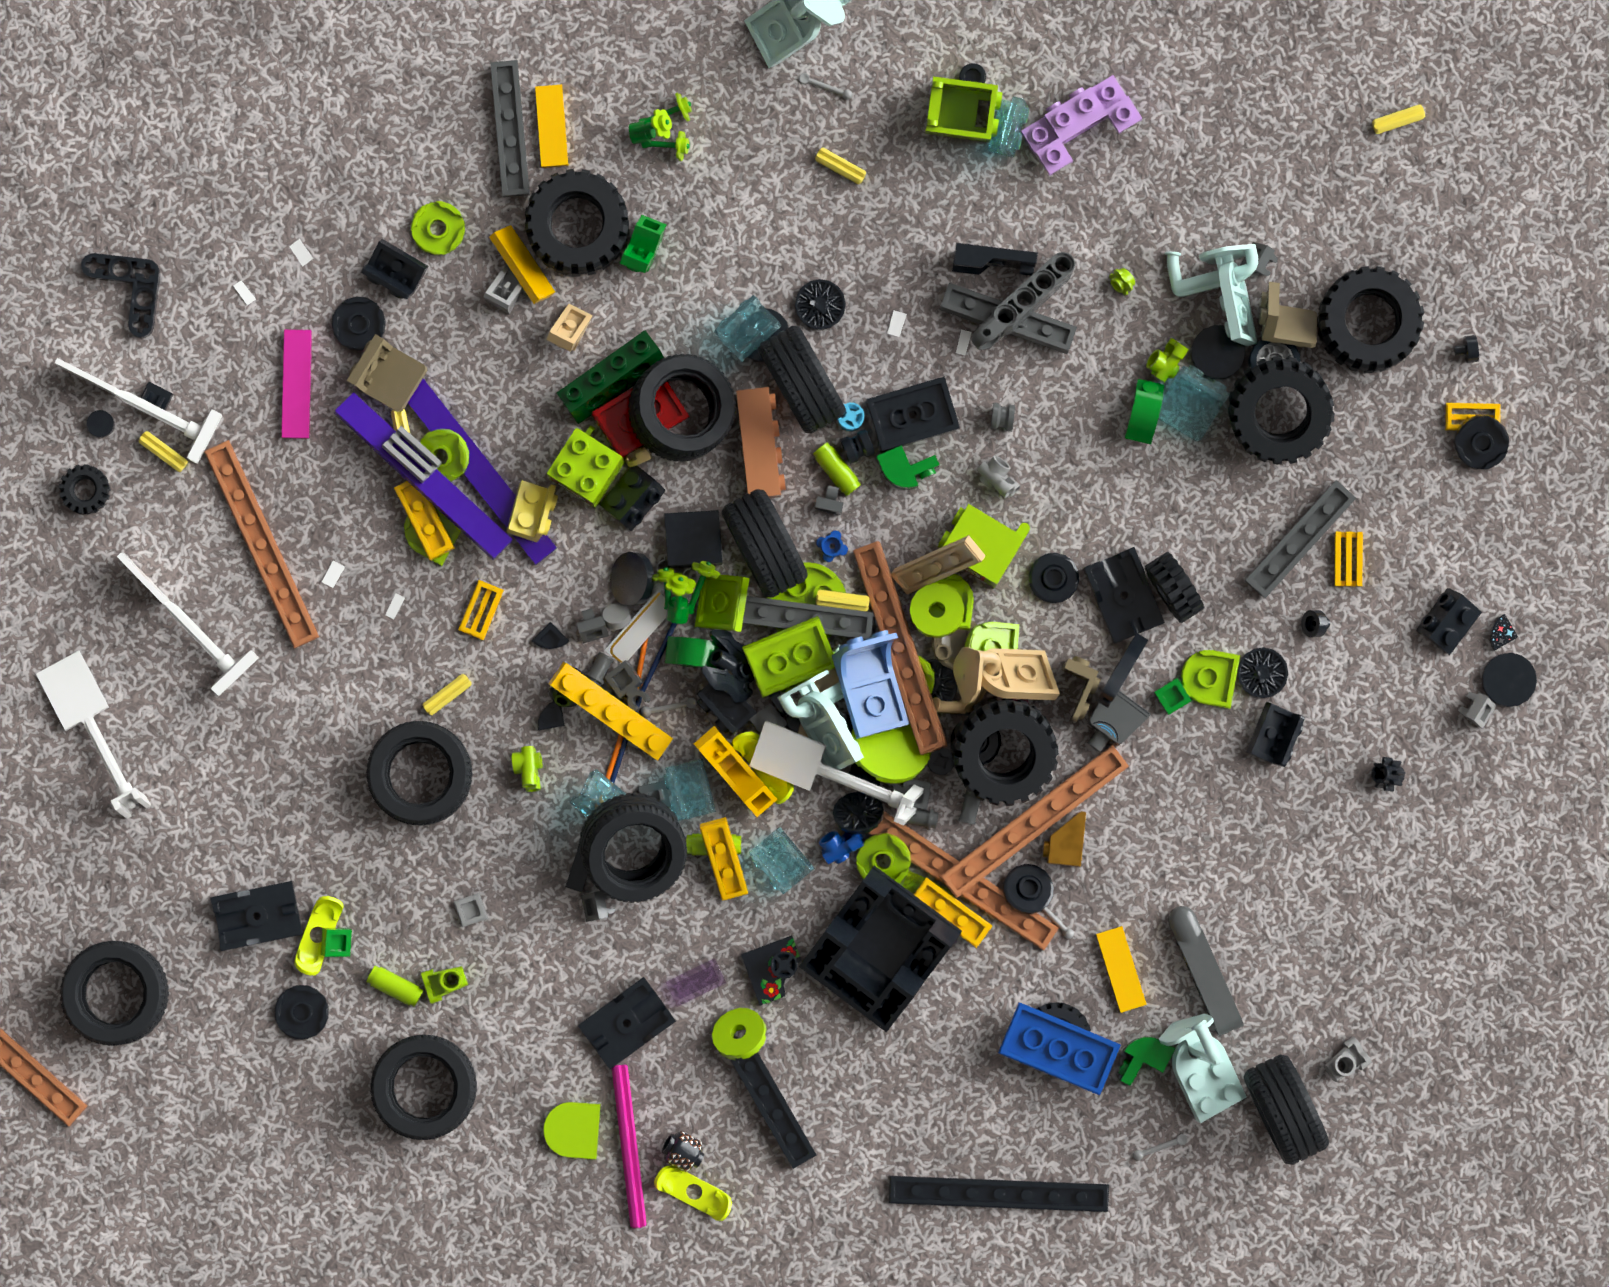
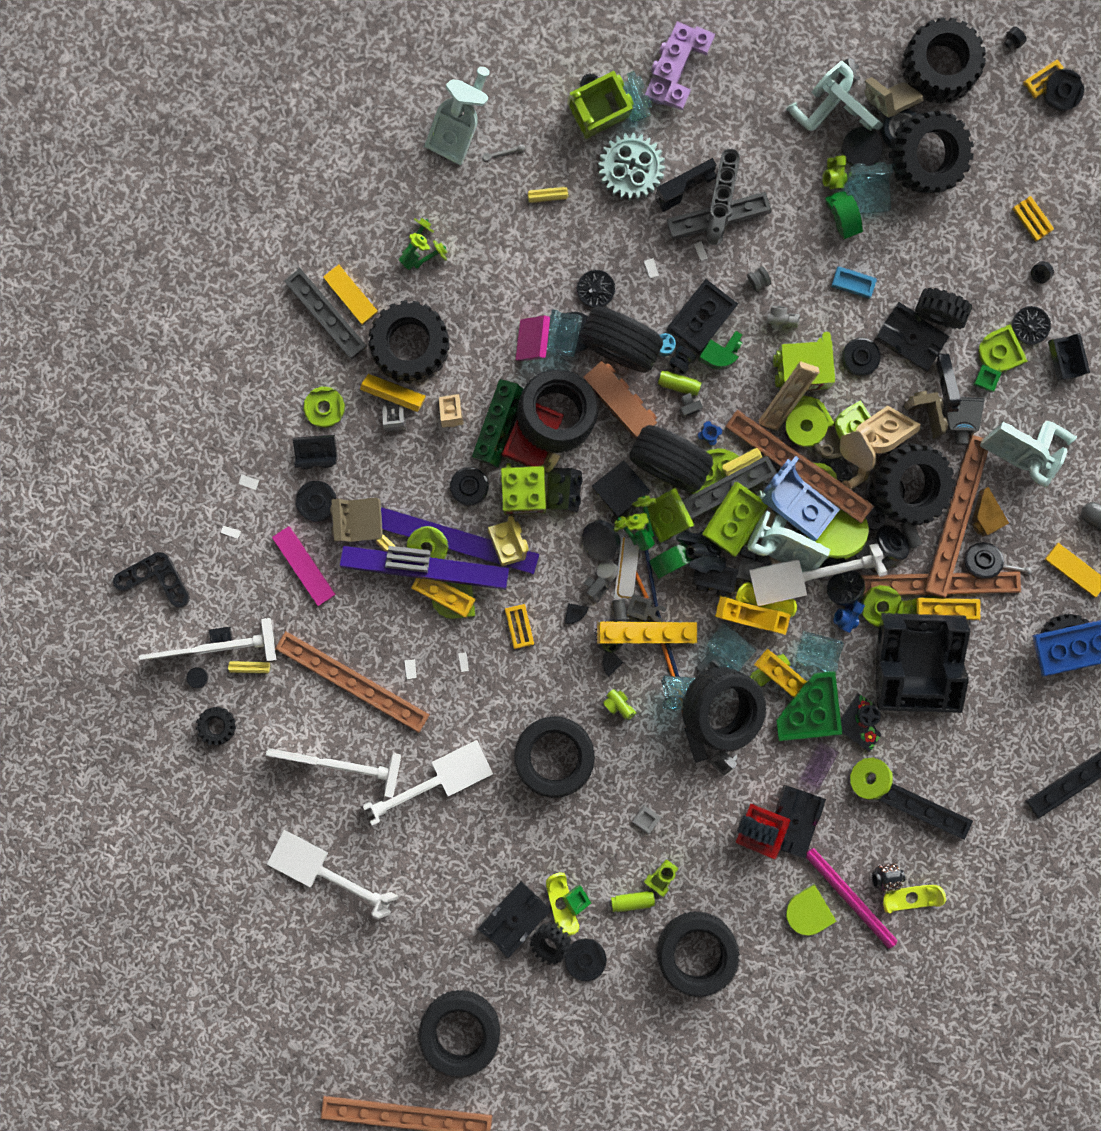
camera: 30 degrees left, 0 degrees up
(288, 966) = (557, 936): none -> black tyre
(302, 715) = (453, 771): none -> white piece
(447, 694) = (535, 694): light yellow axle -> none
(540, 422) = (469, 486): none -> black wheel
(583, 1006) = (762, 831): none -> red plate
(643, 244) = (460, 327): green brick -> none
(690, 703) = (691, 592): light grey hinge -> none
(711, 311) = (532, 338): none -> dark pink tile
(728, 918) = (812, 710): none -> green plate
(931, 213) = (637, 149): none -> light aqua gear
(942, 800) = (892, 543): none -> black wheel
(1104, 492) = (854, 282): none -> dark azure tile
(1122, 281) = (772, 144): lime plate -> none
(1152, 805) = (1028, 453): none -> light aqua plate
(1300, 539) = (995, 226): dark grey plate -> none

